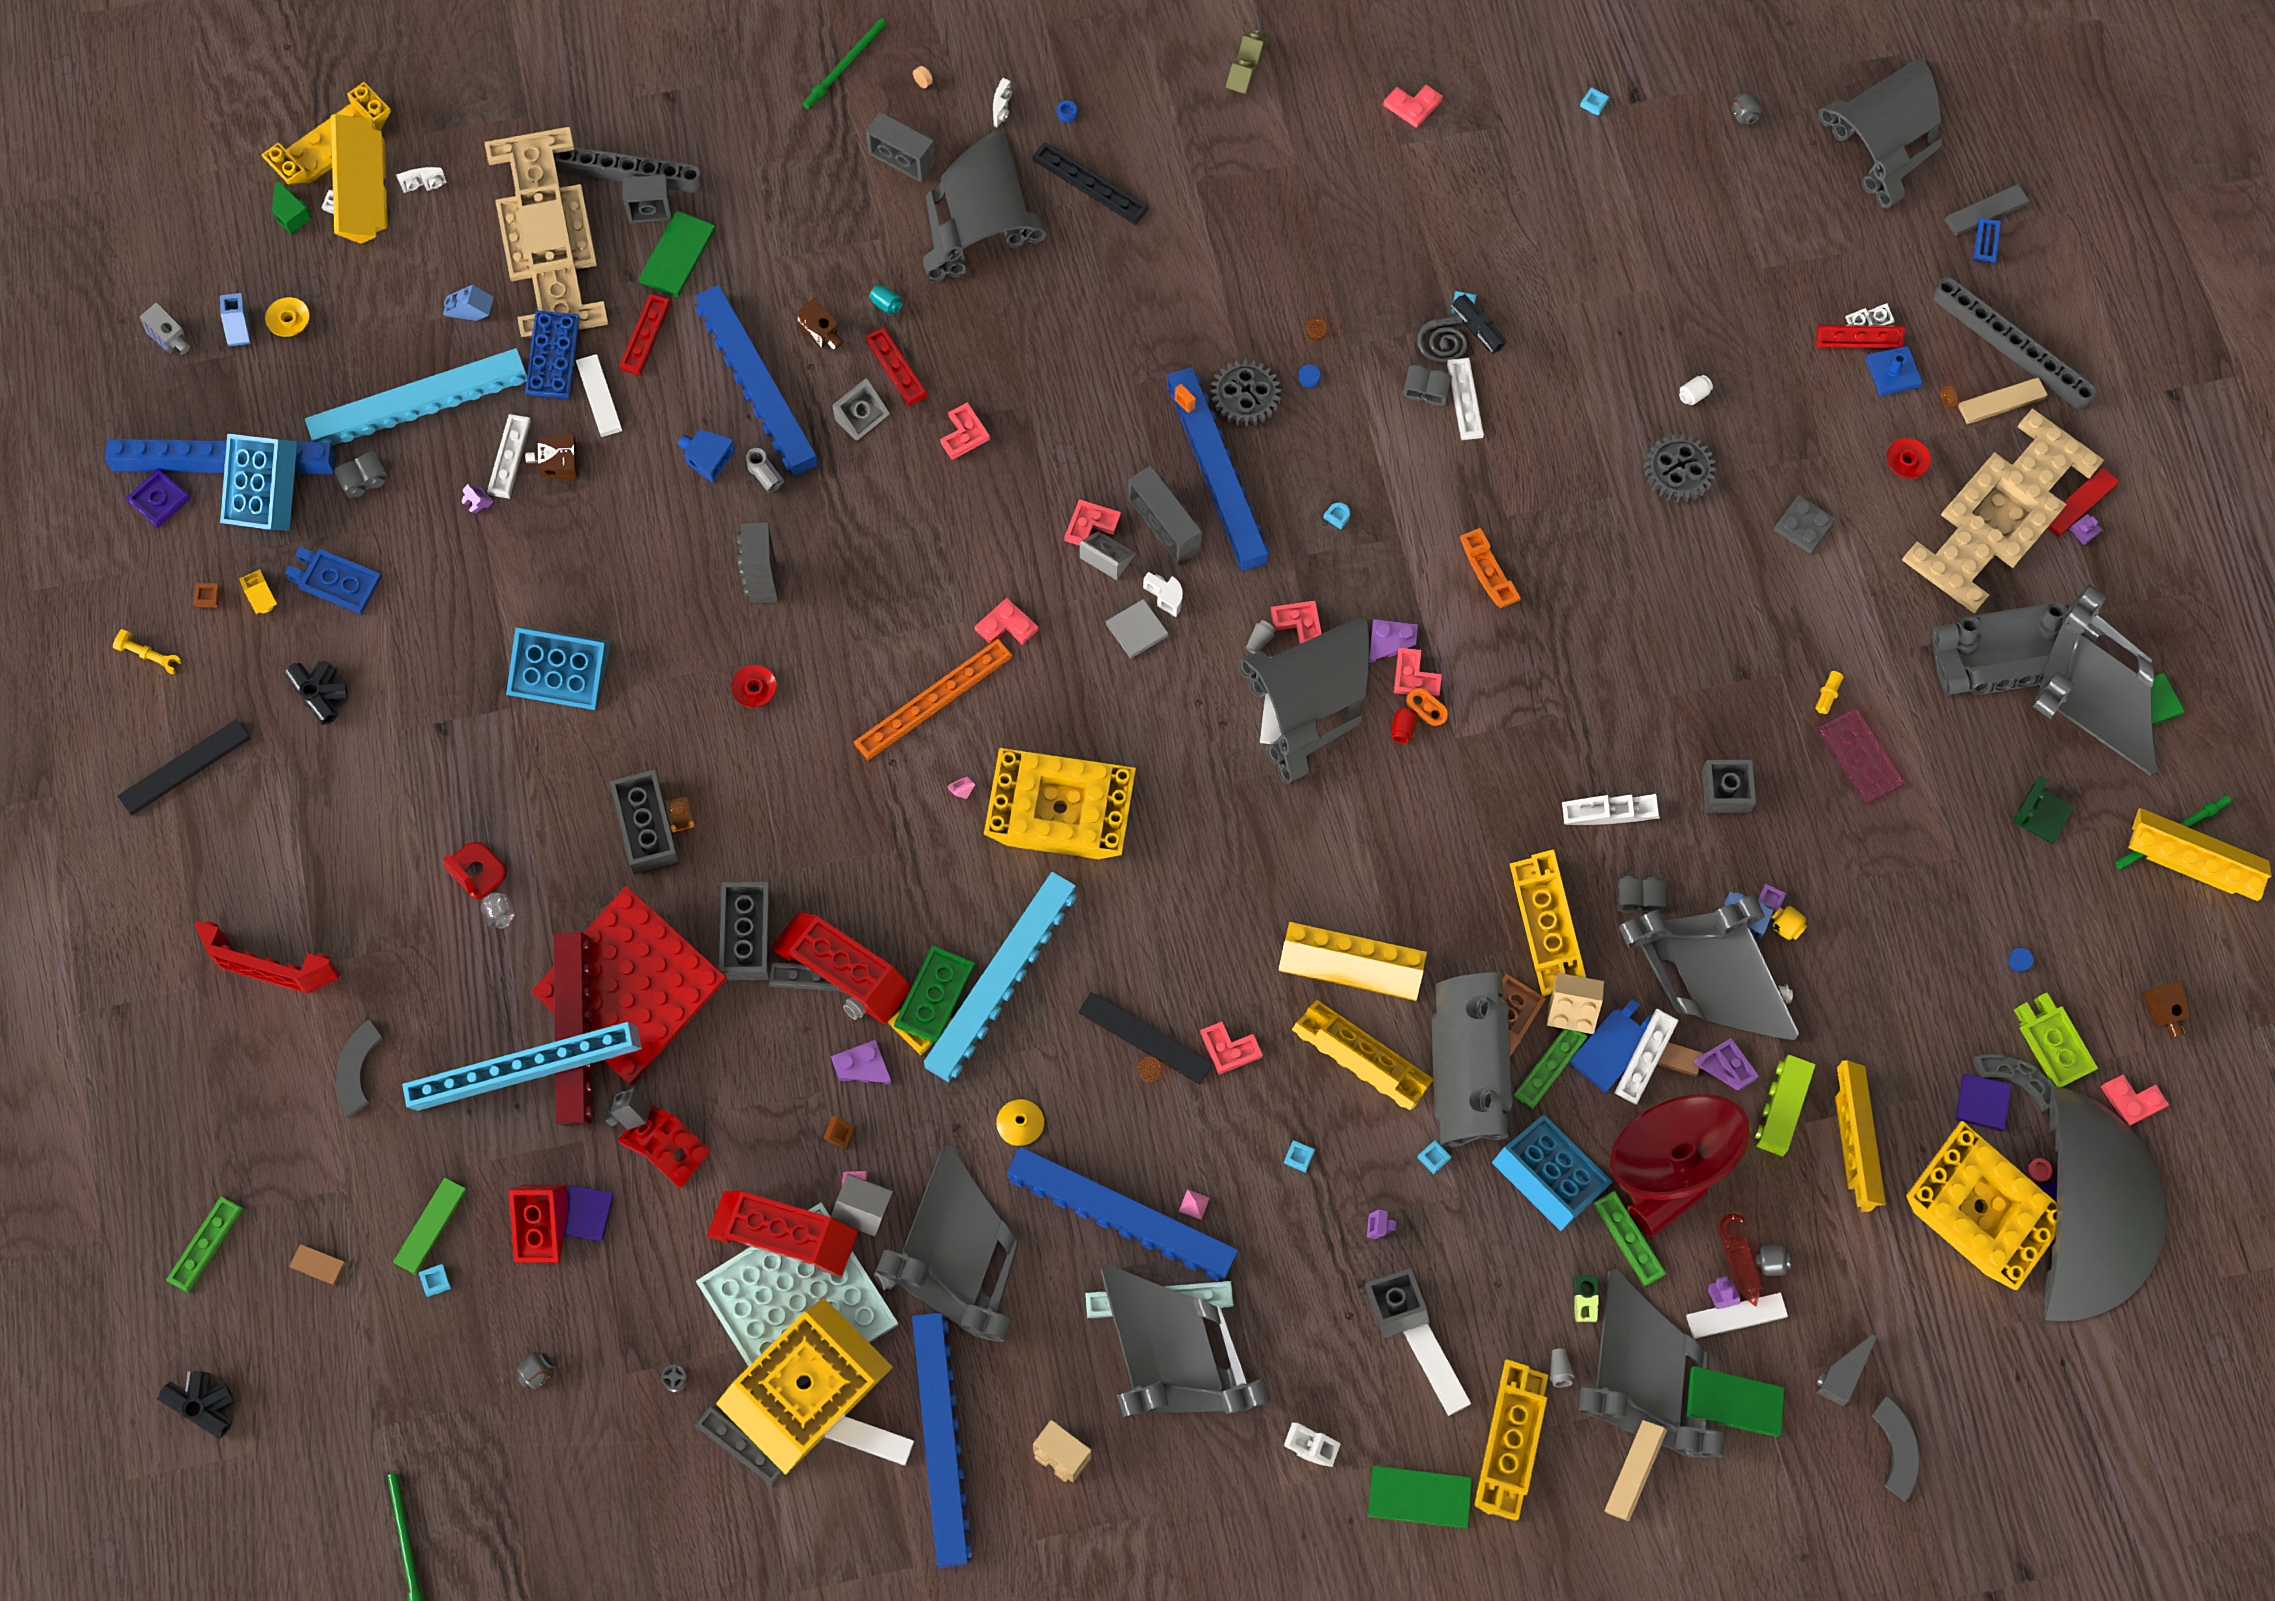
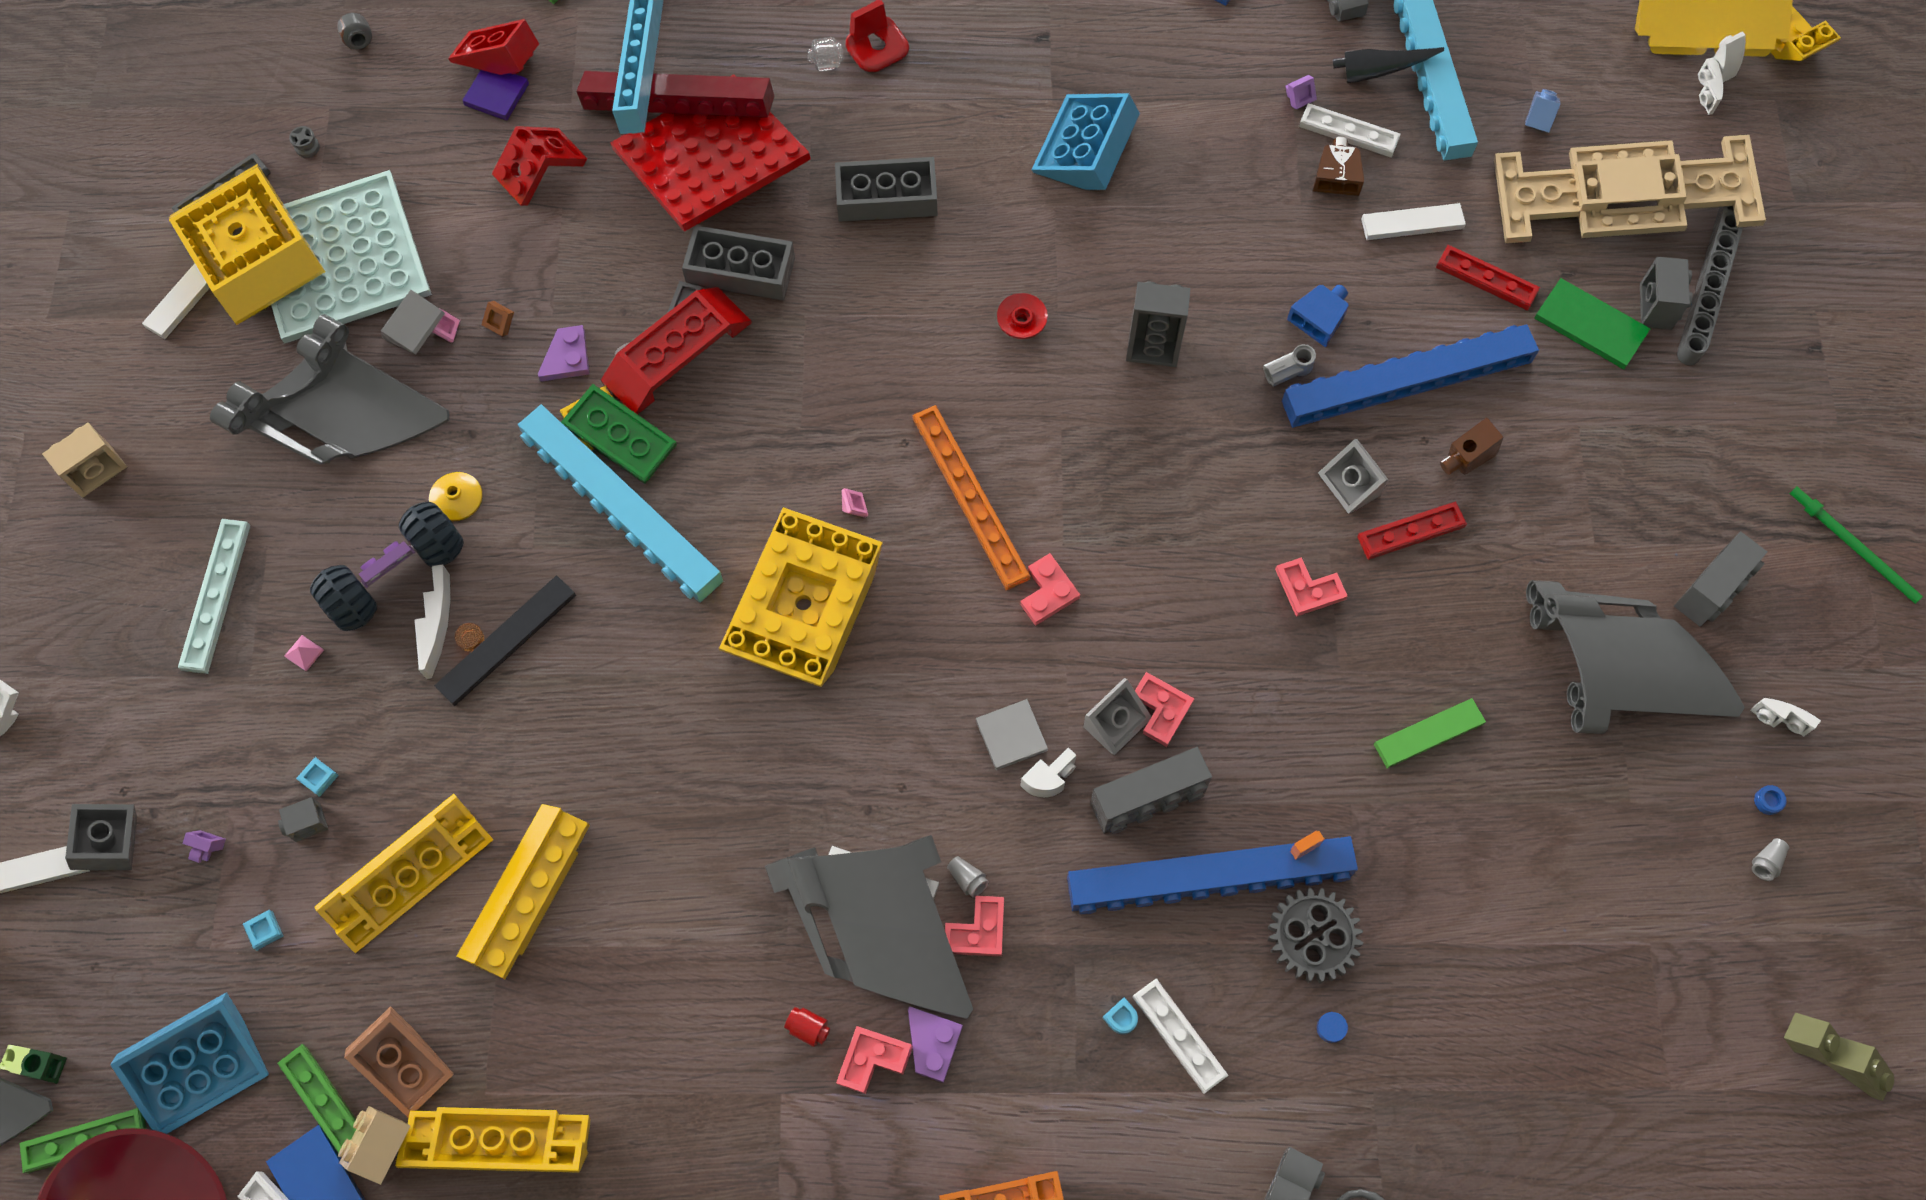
camera: 105 degrees right, 0 degrees up
(392, 162) = (1731, 55): none -> white slope
(439, 445) = (1374, 63): none -> black piece
(552, 354) = (1469, 180): blue tile -> none
(629, 1109) = (579, 135): dark grey brick -> none
(679, 814) = (888, 224): clear orange brick -> none
(783, 1231) = (398, 244): red slope -> none
(886, 299) = (1504, 532): teal brick -> none
(922, 77) = (1830, 629): light nougat tile -> none
(940, 1442) = (151, 357): blue brick -> none
(1067, 336) = (1429, 733): none -> bright green tile
(1075, 1115) = (347, 600): none -> black plate
(1090, 183) = (1655, 807): black tile -> none
(1116, 108) = (1770, 860): none -> light grey cone
(1122, 1214) = (291, 596): blue brick -> none
(1152, 1097) = (433, 628): none -> white slope
(1171, 1352) = (142, 591): dark grey panel -> none
(1228, 1054) = (457, 720): coral plate -> none
(1316, 329) = (1402, 1053): clear orange tile -> none
(1340, 1151) = (302, 819): none -> dark grey brick
(1341, 474) = (1180, 1036): none -> white tile
(1426, 706) = (824, 1060): orange plate -> none
(1471, 1059) = (342, 992): dark grey panel -> none

